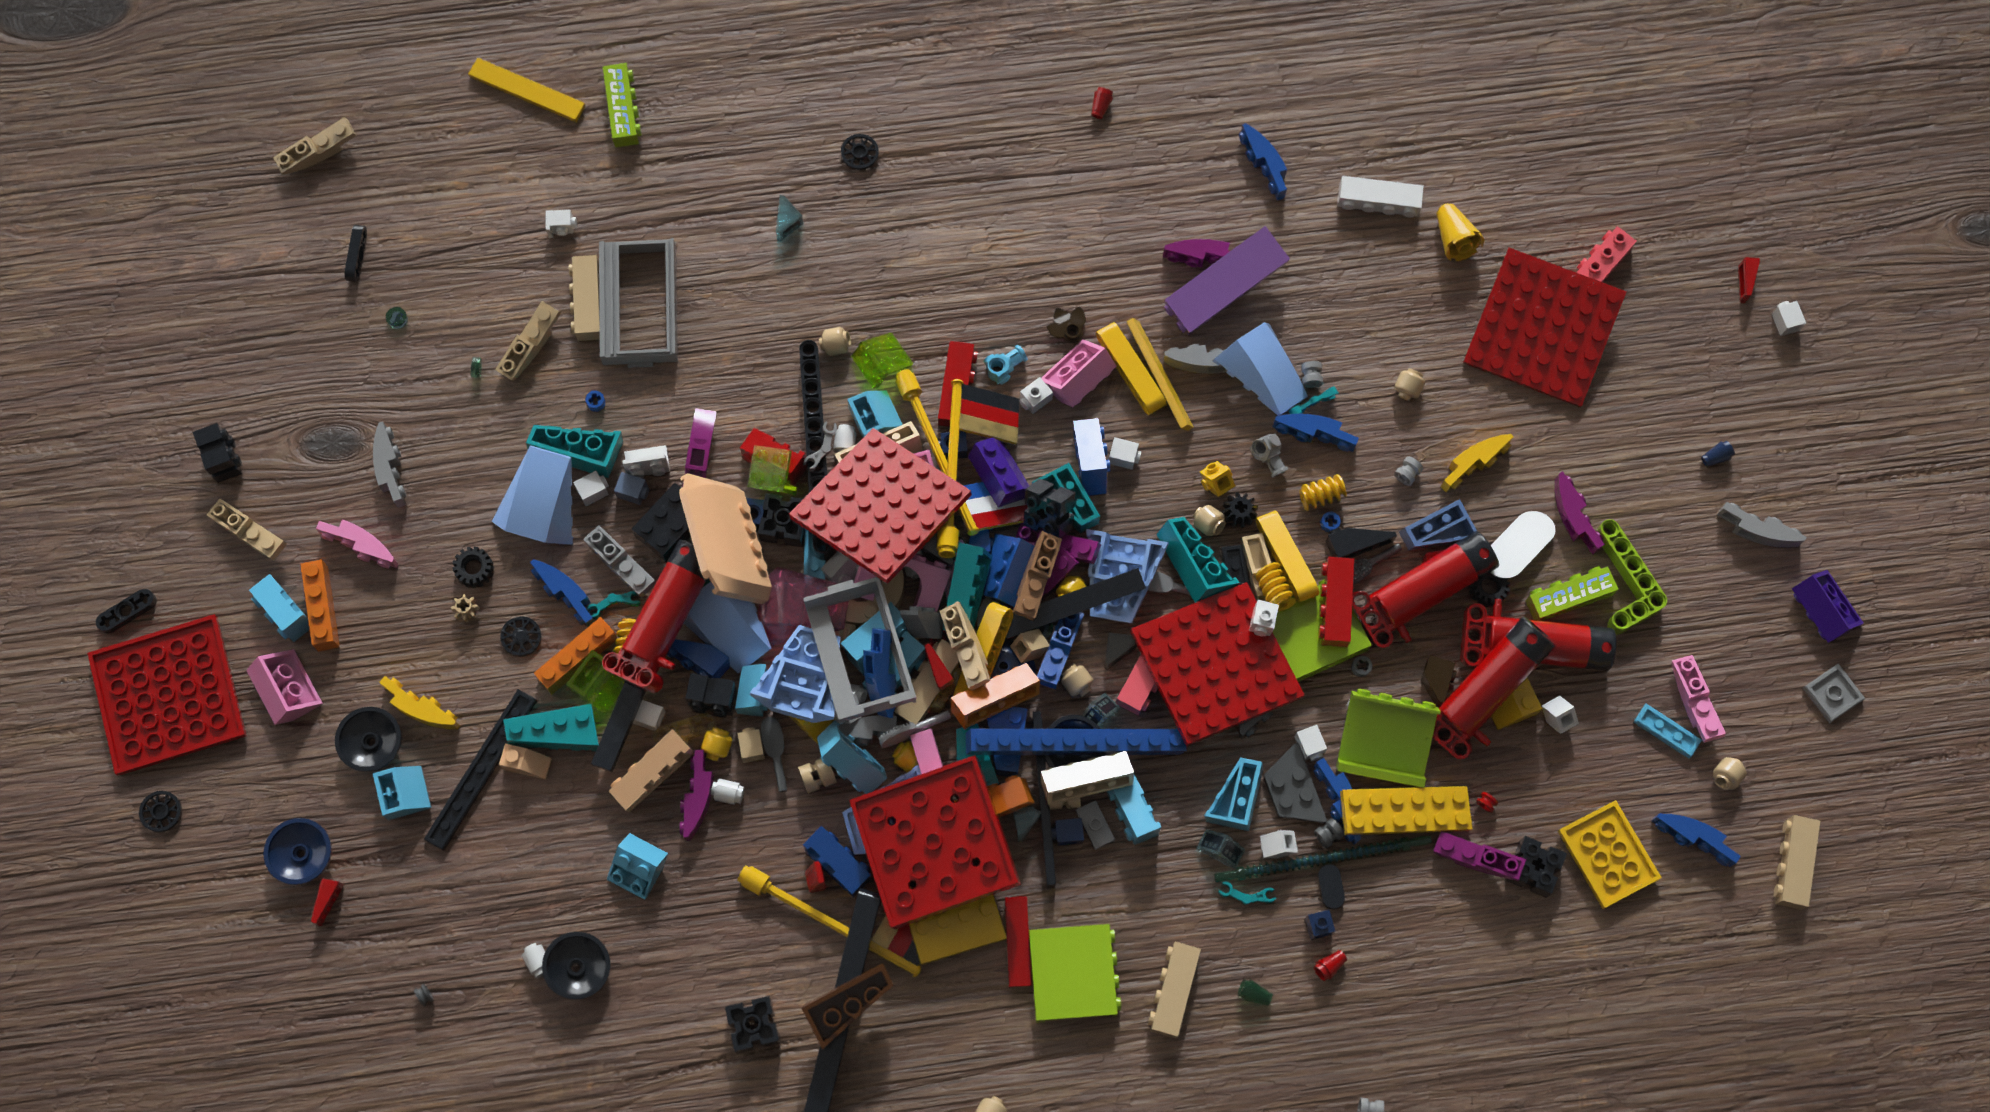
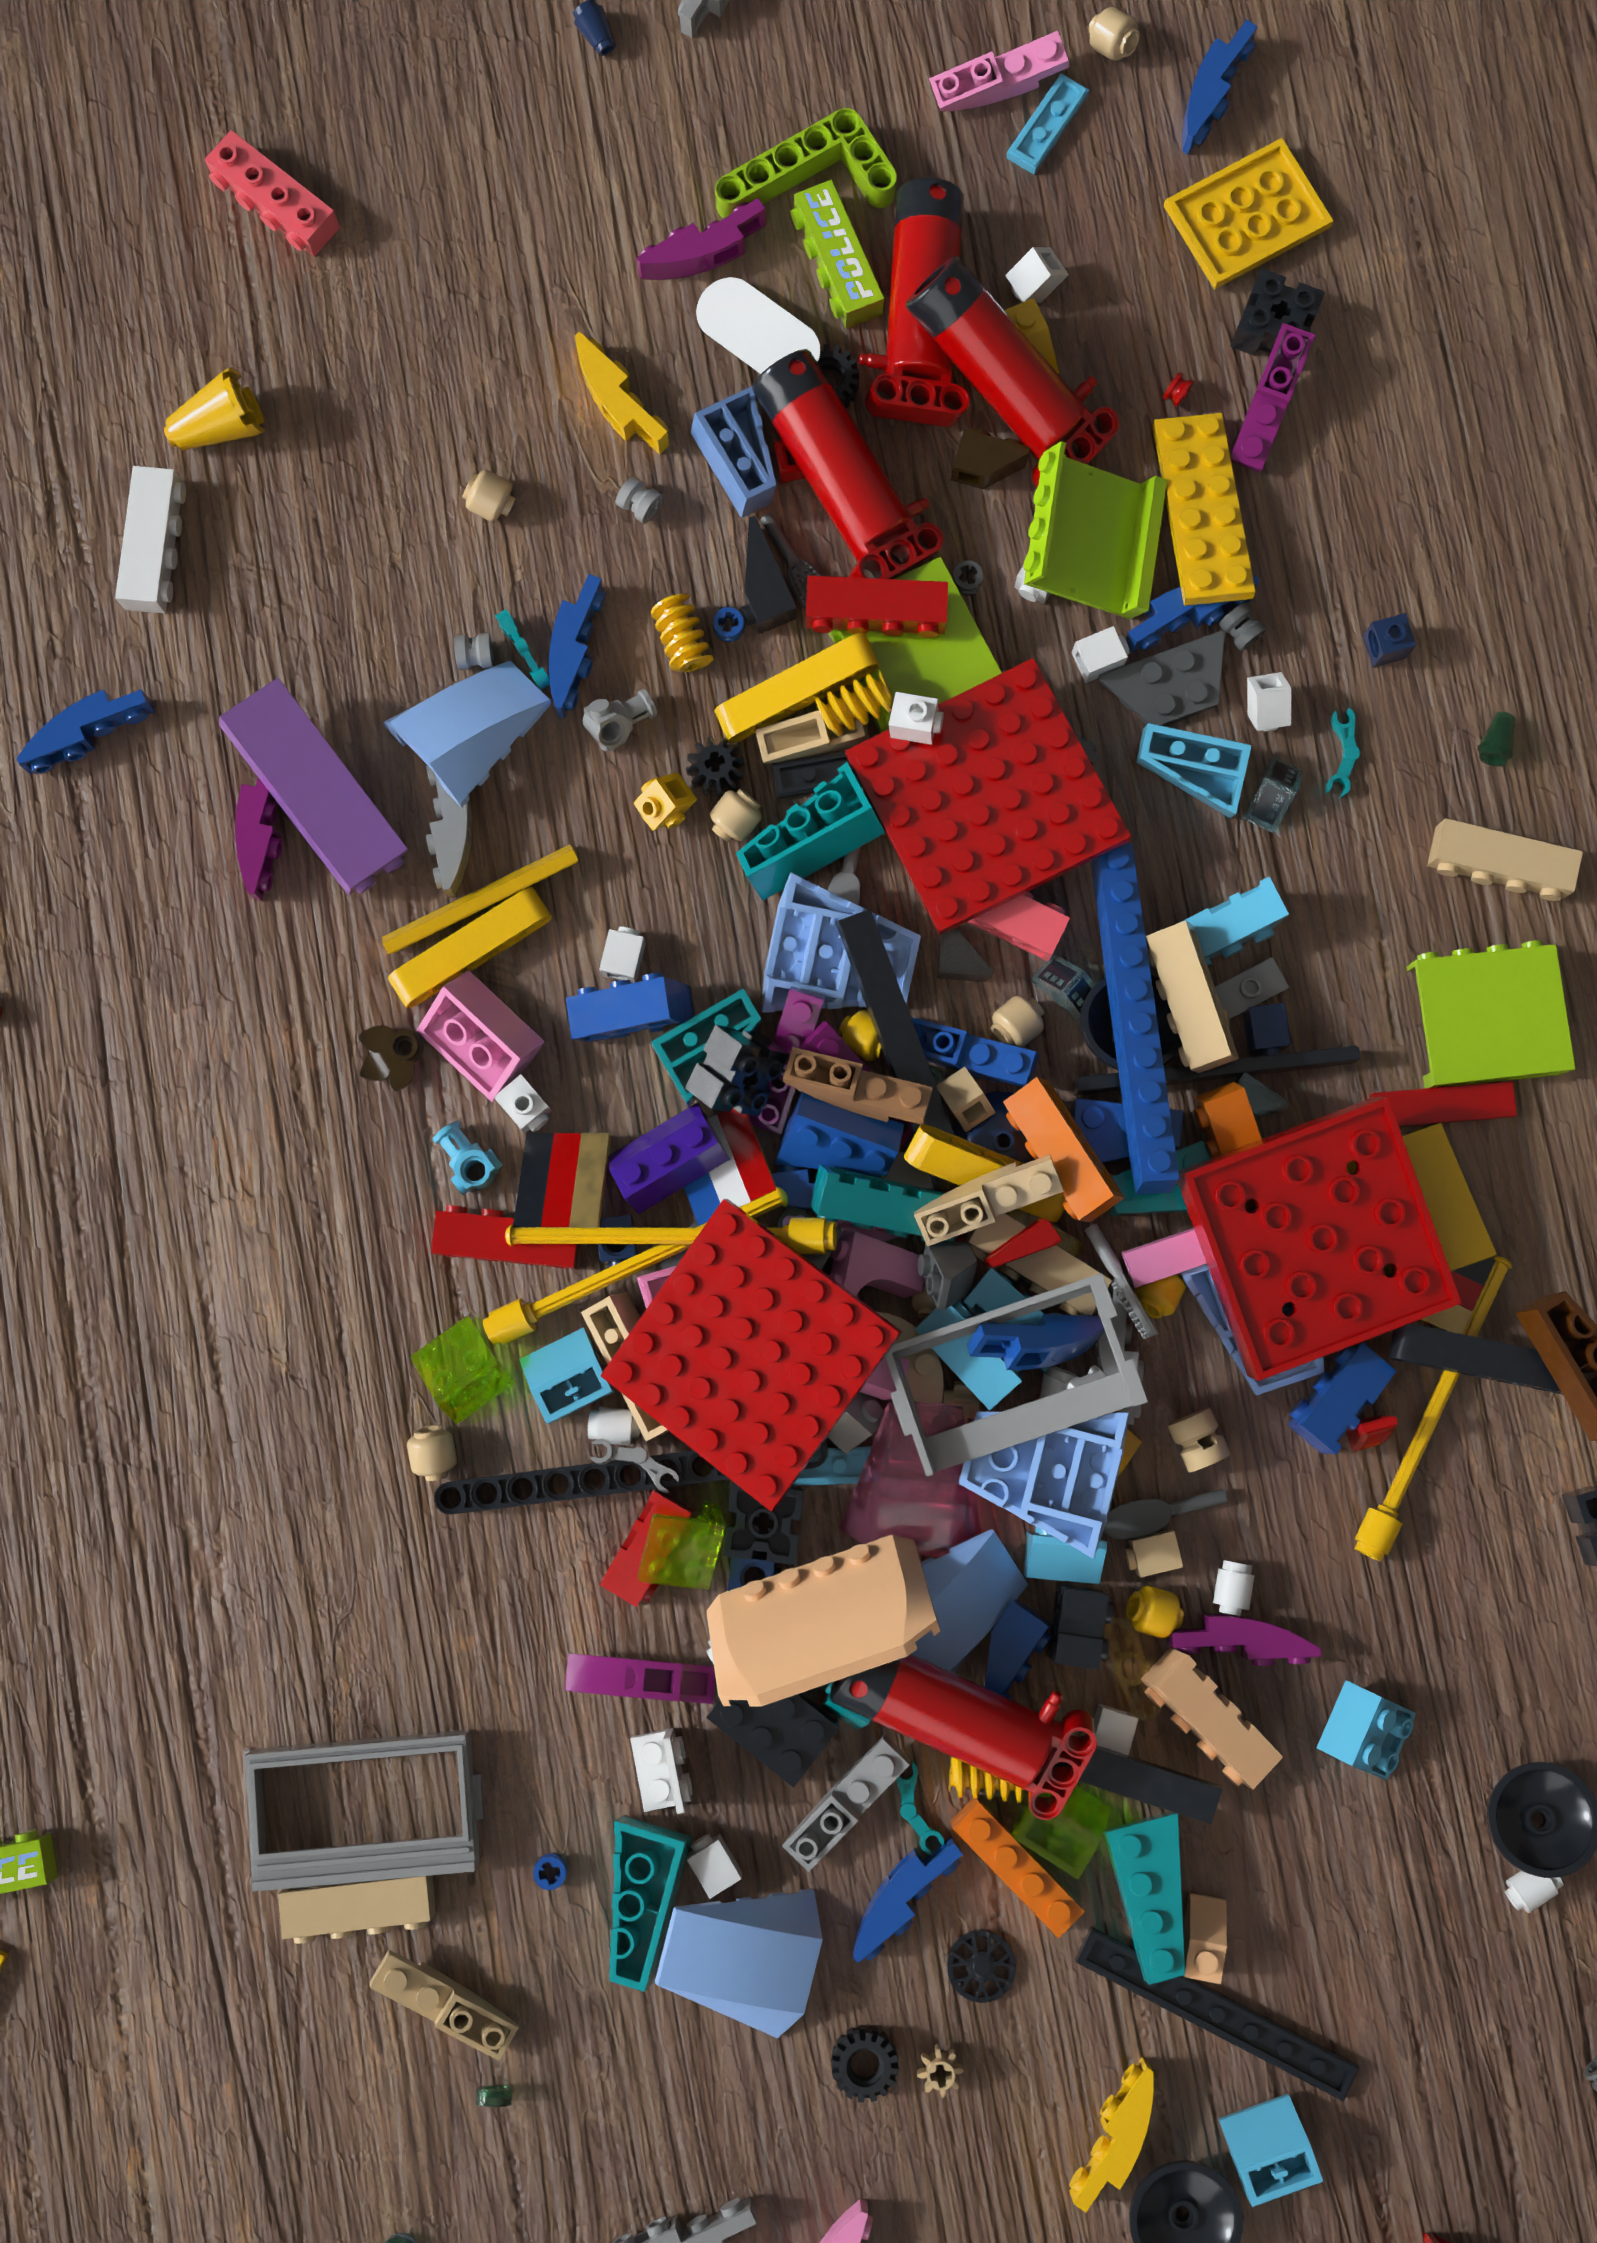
camera: 90 degrees left, 10 degrees up
(560, 222) = (211, 1967): white brick -> none
(631, 488) = (713, 1793): sand blue brick -> none
(788, 219) = (200, 1550): clear light blue slope -> none
(850, 760) = (1179, 1385): medium azure wedge -> none
(859, 152) = (67, 1429): black wheel -> none
(1241, 872) = (1250, 516): hose -> none
(1329, 966) = (1447, 626): red cone -> none
(1331, 887) = (1323, 626): black tile -> none
(1544, 327) = (384, 279): red plate -> none

